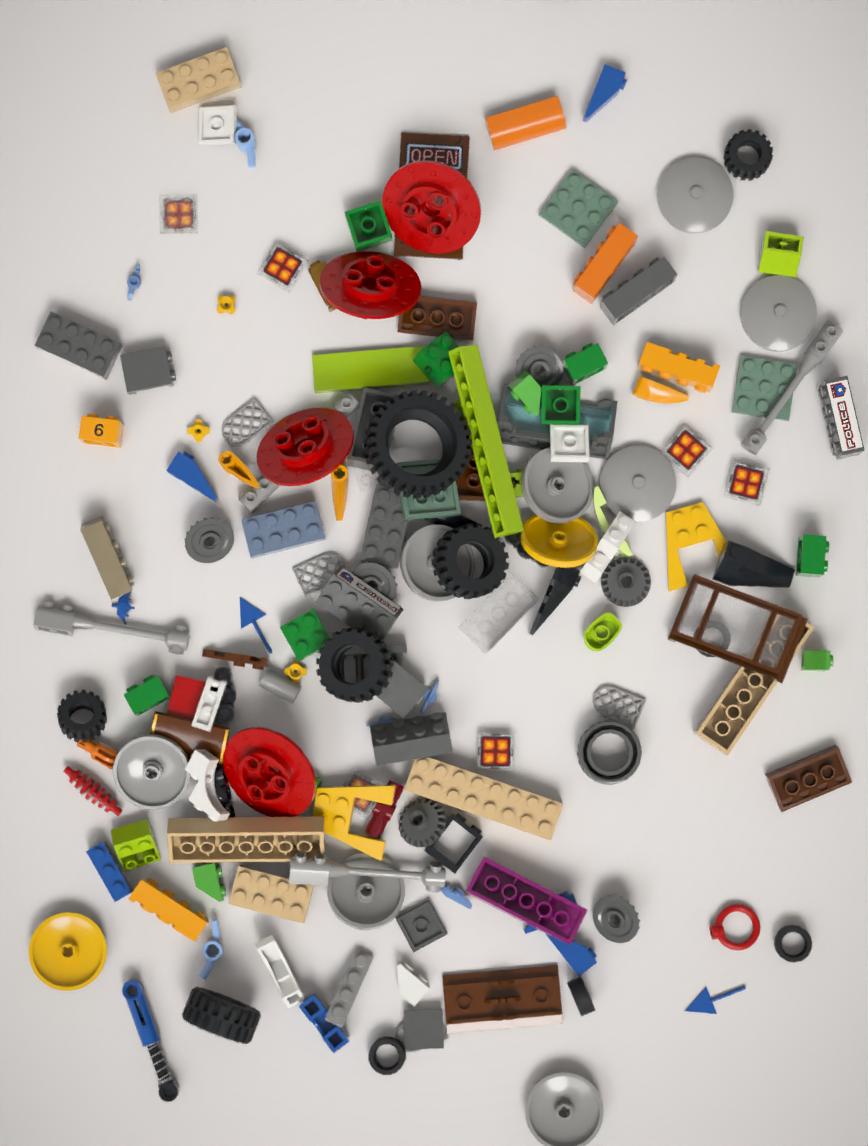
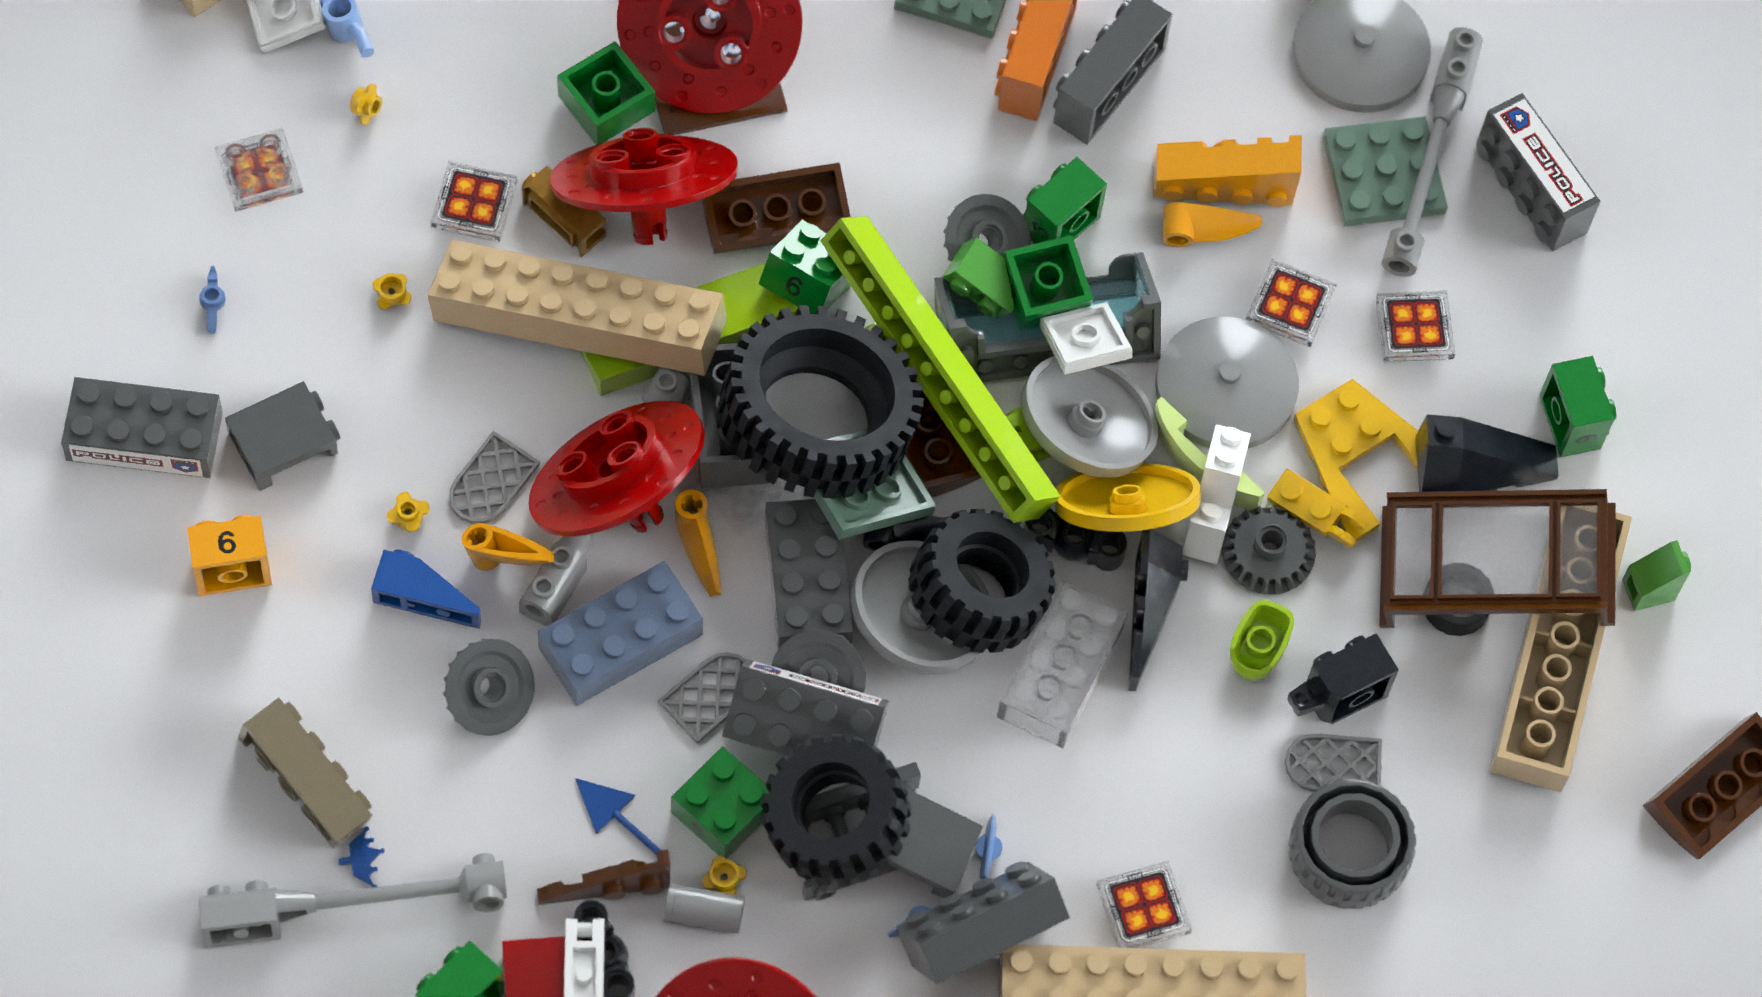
camera: 25 degrees left, 20 degrees down
(243, 193) = (366, 103): none -> yellow plate
(314, 348) = (577, 307): none -> tan brick
(634, 669) = (1346, 680): none -> black hinge
(656, 567) = (1314, 507): none -> yellow hinge

